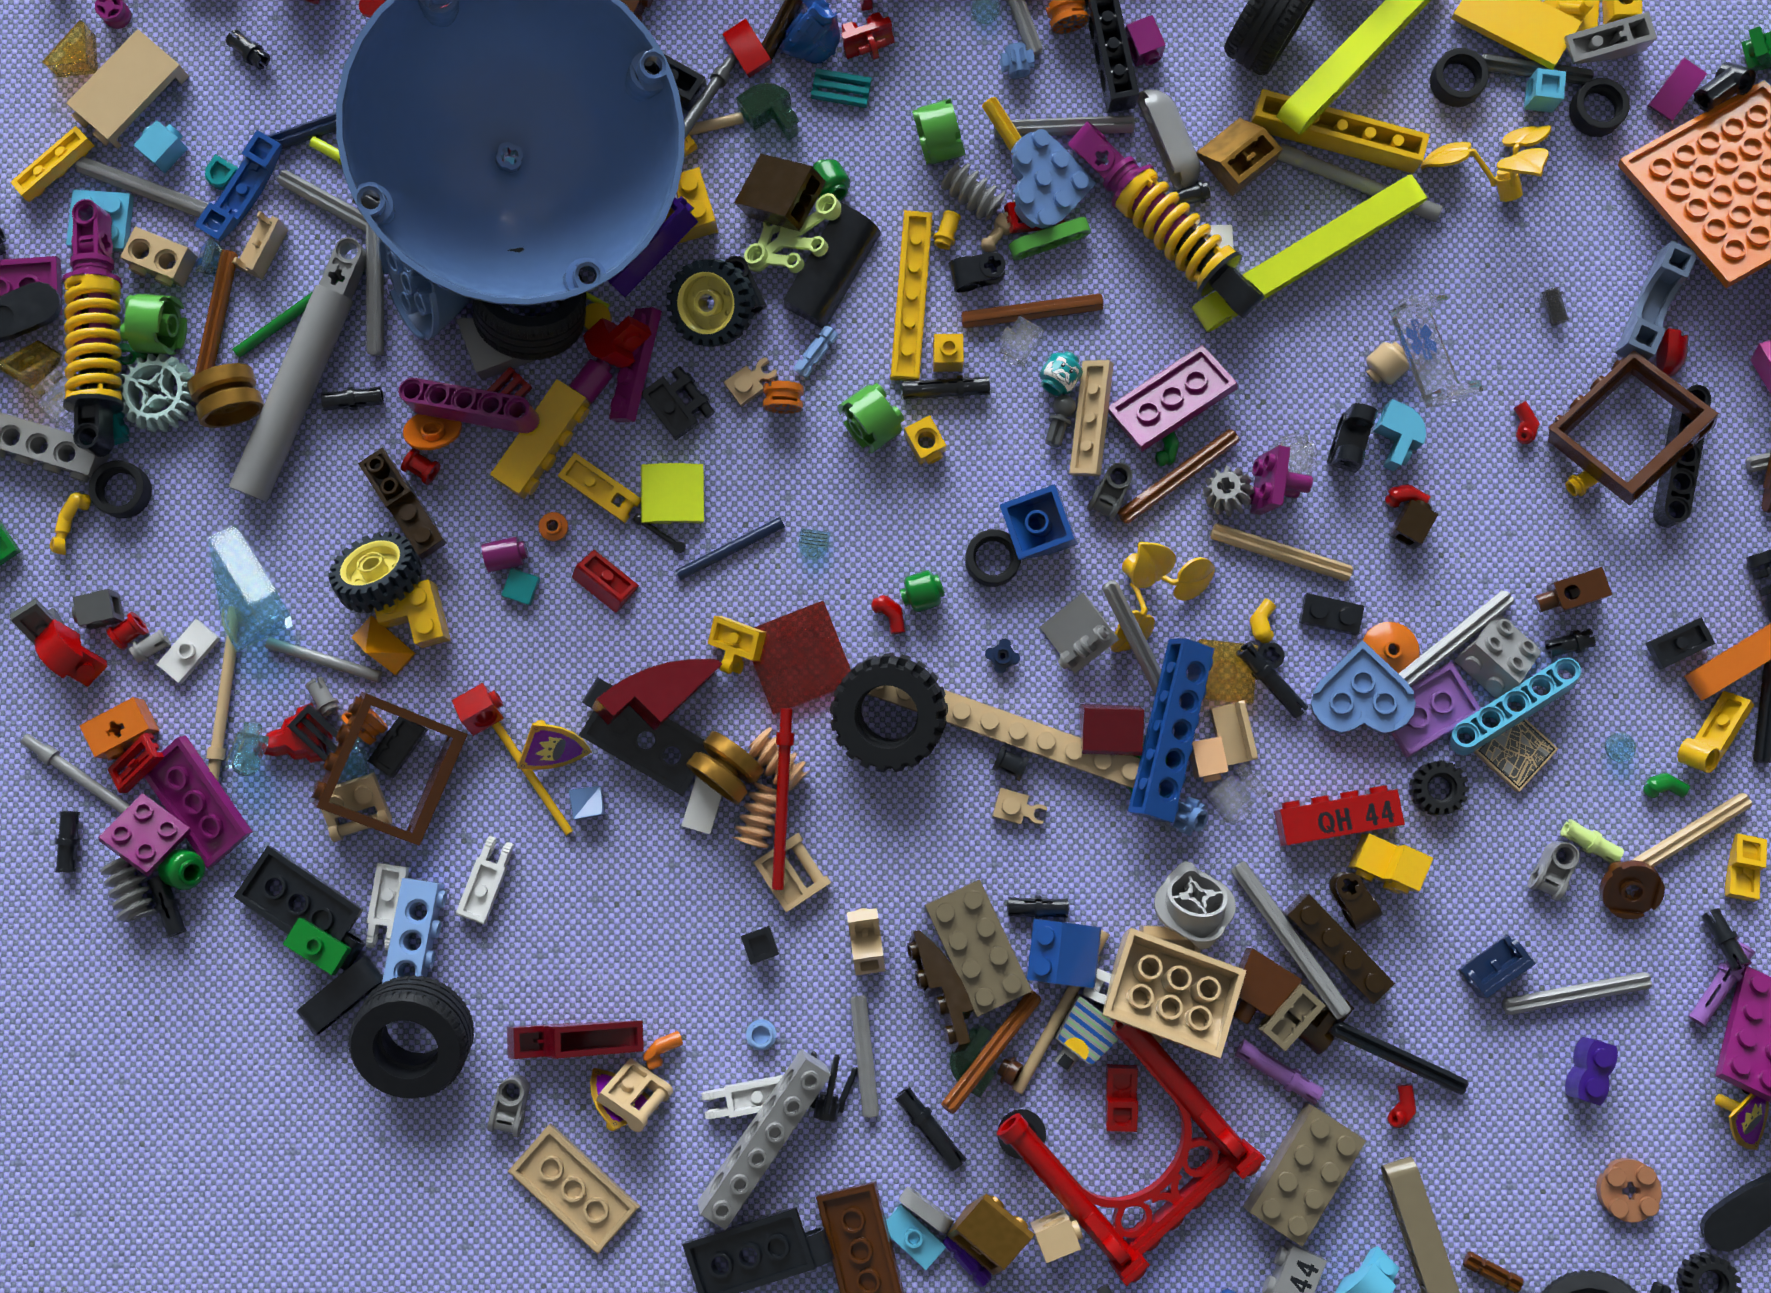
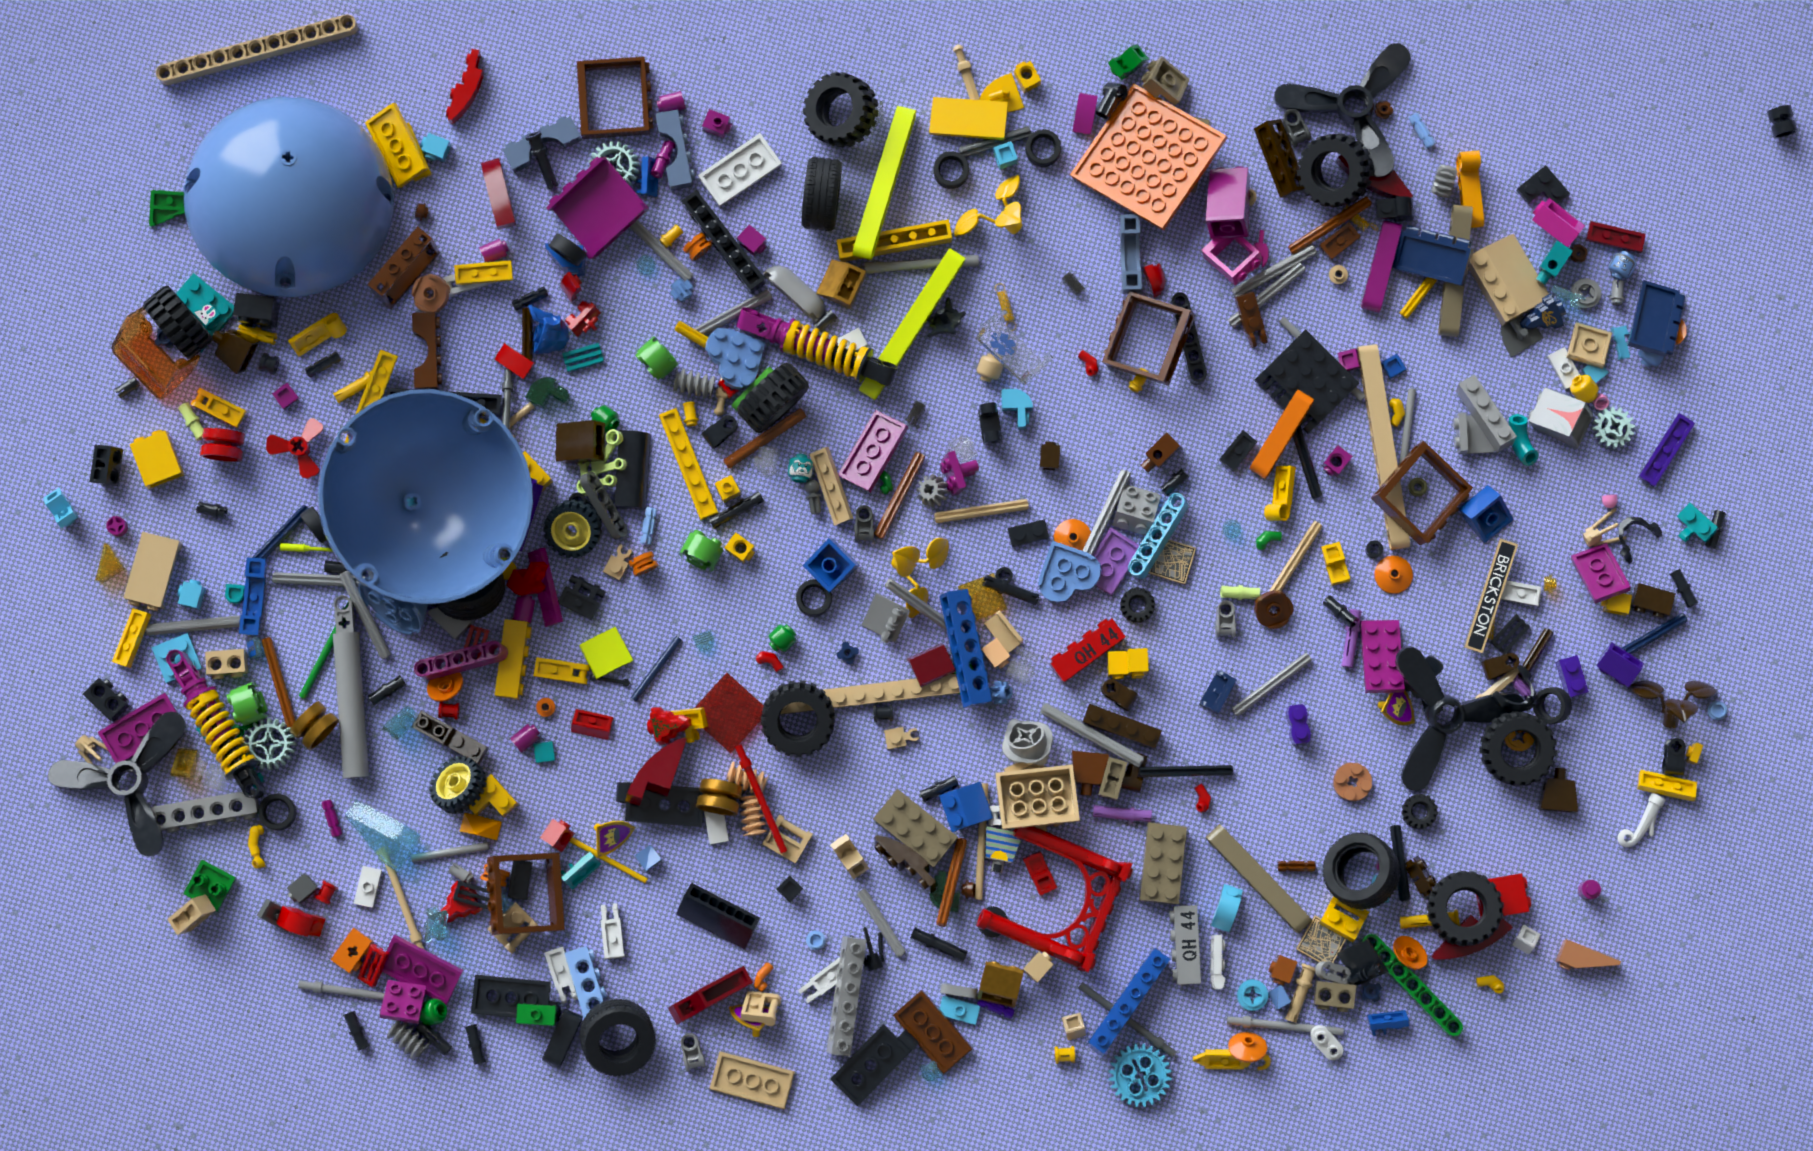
camera: 25 degrees left, 0 degrees up
(149, 646) = (344, 894): light grey pin -> none
(189, 534) = (331, 818): none -> magenta axle
(218, 943) = (475, 1044): none -> black pin
(261, 246) = (283, 625): tan hinge -> none
(345, 451) = (400, 723): none -> clear light blue hips
(485, 773) = (581, 870): none -> teal plate
(642, 932) = (718, 915): none -> black brick
(702, 631) = (666, 725): none -> red rock
(771, 292) = (590, 482): none -> dark grey beam
(1072, 254) = (773, 397): none -> black tyre
(1259, 372) = (915, 412): none -> clear smoke pin
(1259, 621) = (988, 559): yellow arm -> none
(1357, 270) = (945, 320): none -> black piece
(1405, 493) = (1037, 439): red arm -> none
(1450, 291) = (1007, 305): none -> yellow piece
(1611, 40) = (1029, 106): light grey slope -> none

